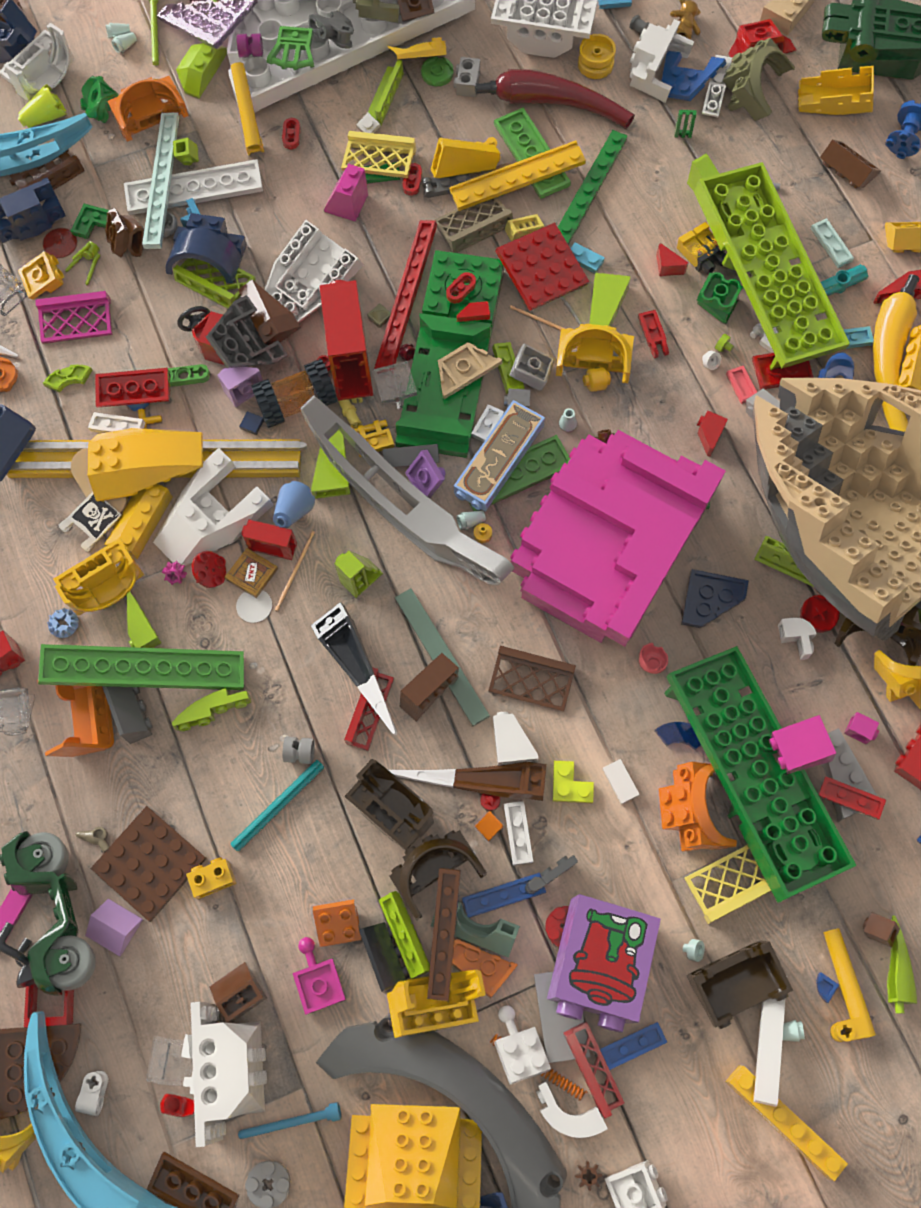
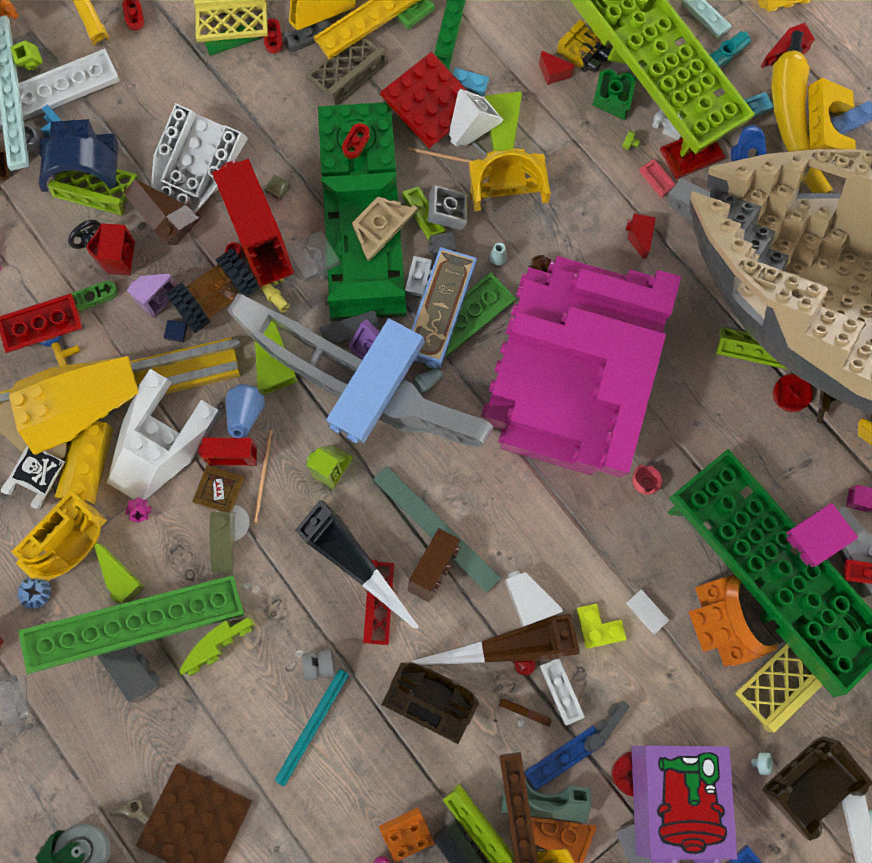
camera: 20 degrees left, 5 degrees up
(90, 721) = (93, 692): orange windscreen -> none
(107, 423) = (26, 366): white plate -> none
(211, 878) = (264, 823): yellow brick -> none
(213, 562) = (172, 489): red plate -> none
(239, 341) = (139, 248): dark grey wedge -> none
(241, 617) = (222, 541): none -> olive slope
(348, 194) = (211, 65): dark pink slope -> none
(378, 440) = (312, 319): yellow plate -> none
(406, 294) = (299, 160): red plate -> none
(407, 351) = (316, 219): dark red plate -> none
(418, 505) = (375, 381): none -> light blue brick
(425, 861) = (483, 749): dark brown piece -> none
(474, 311) = (377, 163): red tile -> none
(480, 844) = (528, 713): none -> reddish brown tile
(482, 533) = (443, 390): yellow tile -> none
(489, 826) = (530, 691): orange slope -> none
(513, 226) = (392, 70): light yellow slope -> none
(534, 661) = (537, 512): reddish brown fence -> none
(576, 290) = (471, 118): none -> white slope
(597, 379) = (515, 205): yellow head -> none
(653, 332) = (558, 144): red hinge -> none
(678, 733) = (690, 547): clear blue tile -> none
(711, 360) = (622, 160): white tile -> none
(711, 596) = (685, 402): dark blue plate -> none
(798, 631) = (779, 416): white brick -> none

